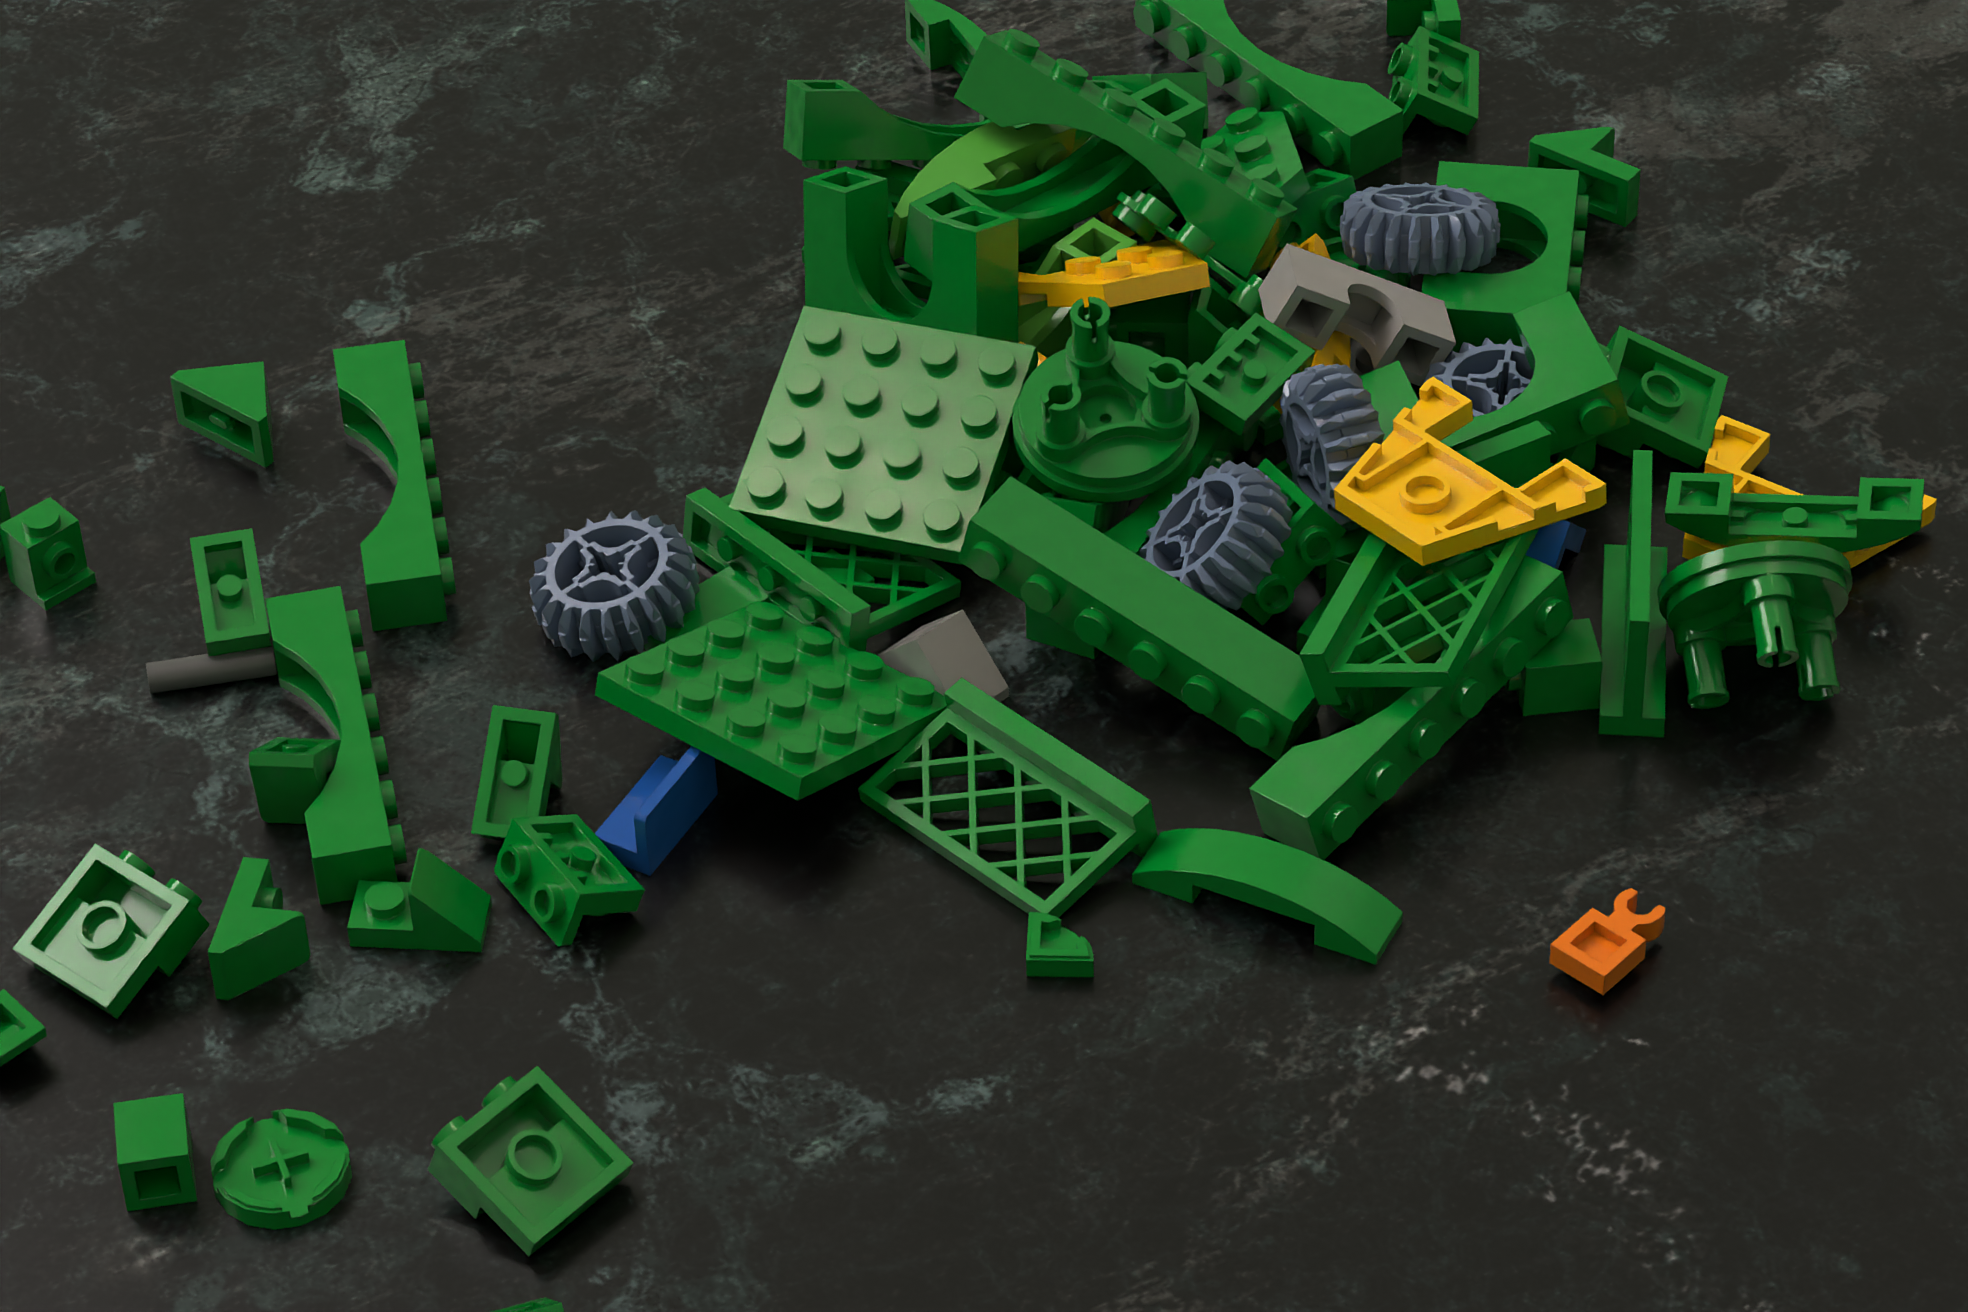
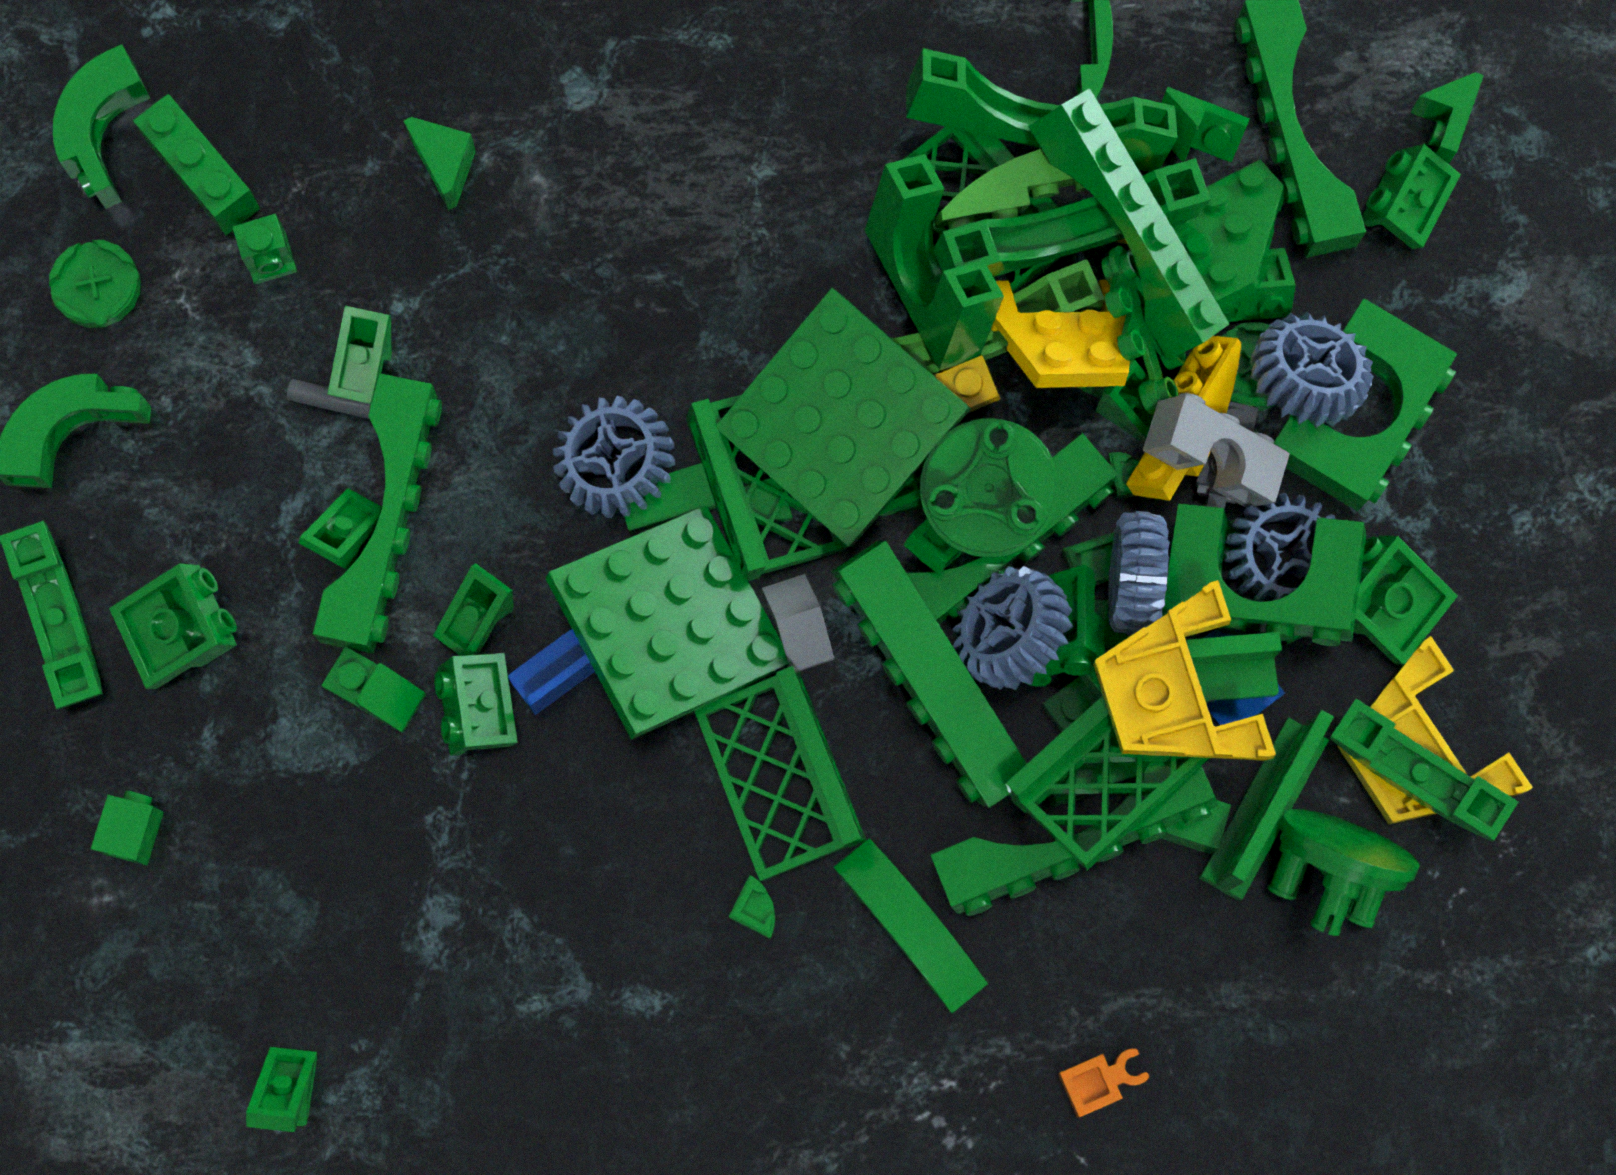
camera: 20 degrees right, 35 degrees up
(255, 934) = (251, 672): green slope -> none
(281, 1169) = (203, 869): green tile -> none
(401, 553) = (491, 362): green arch -> none
(527, 1160) = (344, 949): green plate -> none
(1247, 372) = (1108, 481): green bracket -> none
(1607, 181) = (1462, 332): green slope -> none

